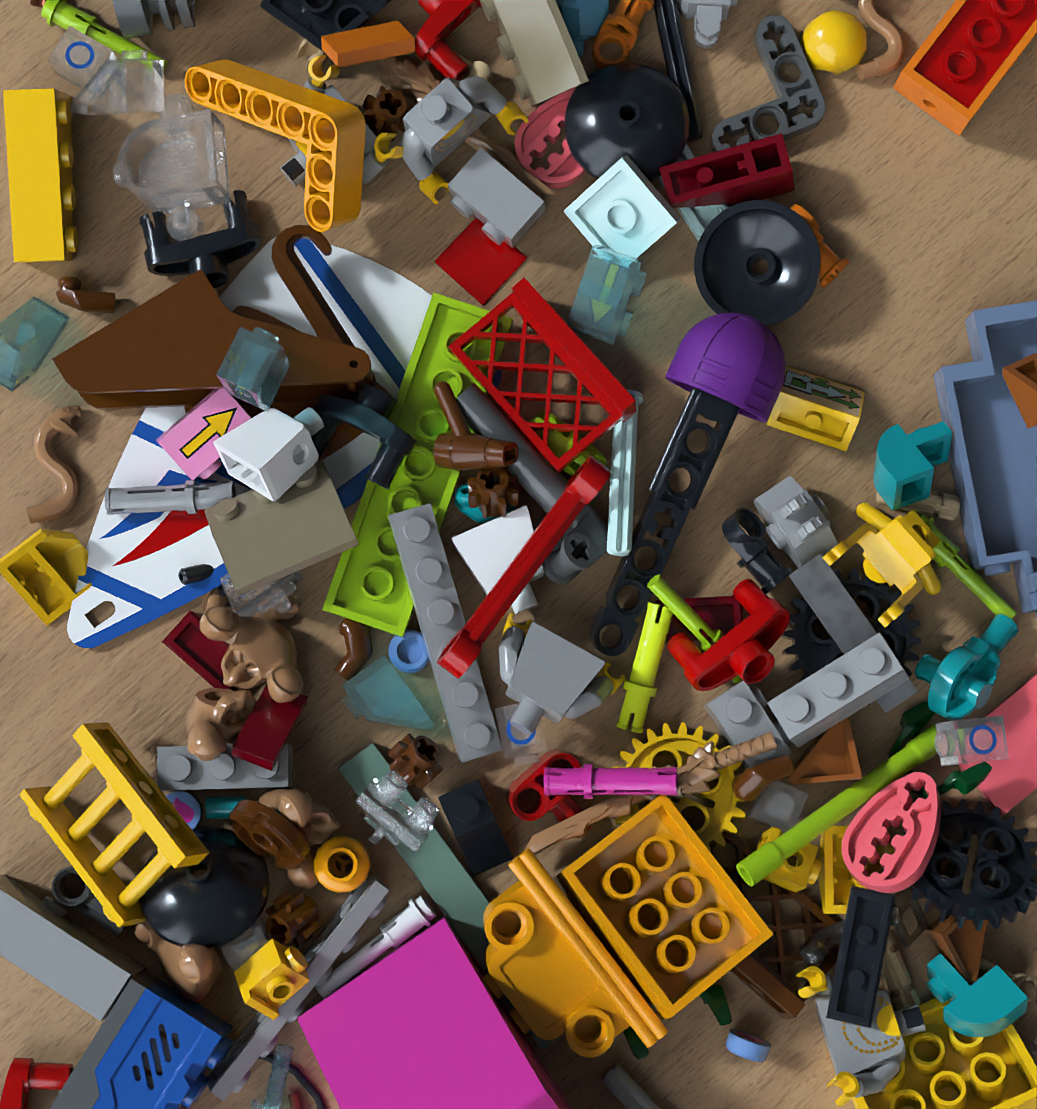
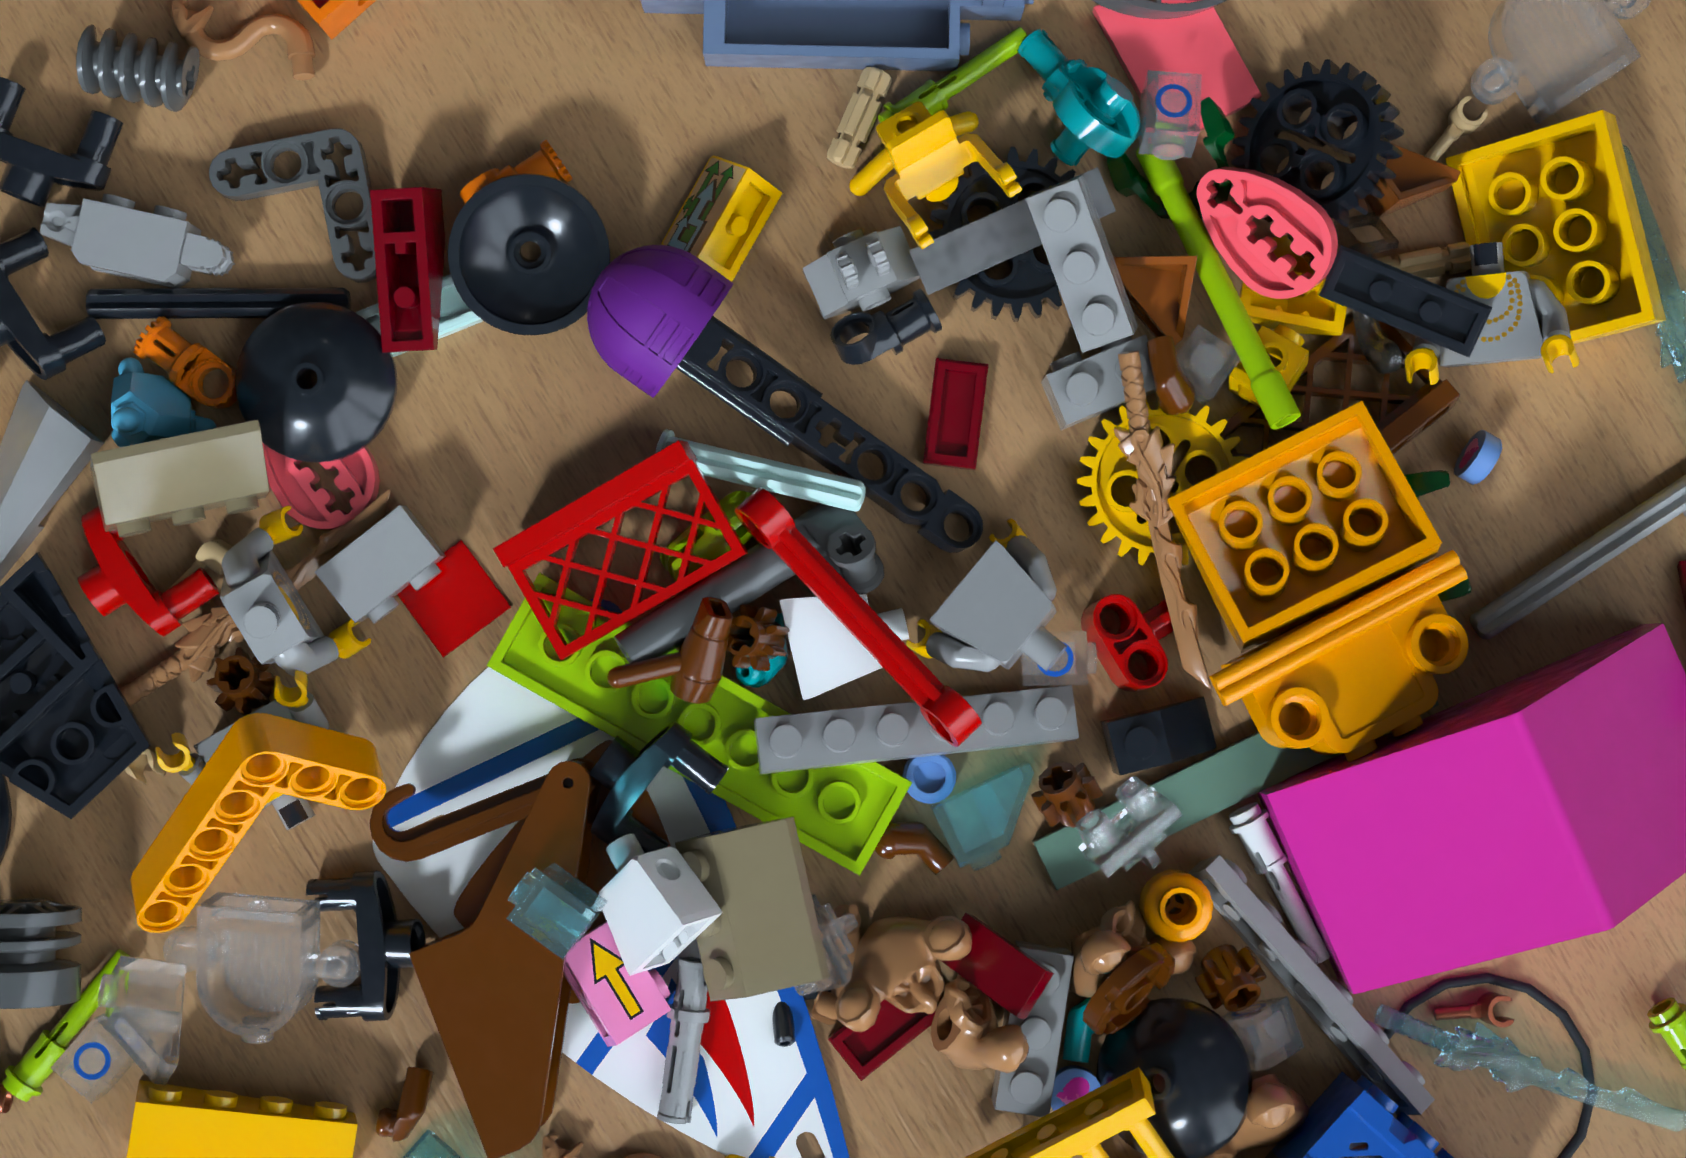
camera: 80 degrees left, 5 degrees up
(271, 977) = (1300, 1016): yellow brick -> none
(368, 44) = (149, 690): orange tile -> none
(605, 294) = (531, 451): clear light blue brick -> none
(610, 781) = (1141, 562): dark pink pin -> none
(622, 211) = (433, 410): light aqua plate -> none
(645, 668) = (1023, 501): neon yellow pin -> none
(685, 614) = (1019, 383): lime pin -> none
(740, 651) = (1010, 370): red connector -> none
(834, 42) = (258, 100): yellow hair -> none
(906, 463) = (814, 125): teal brick -> none
(975, 1009) = (1488, 172): teal brick -> none

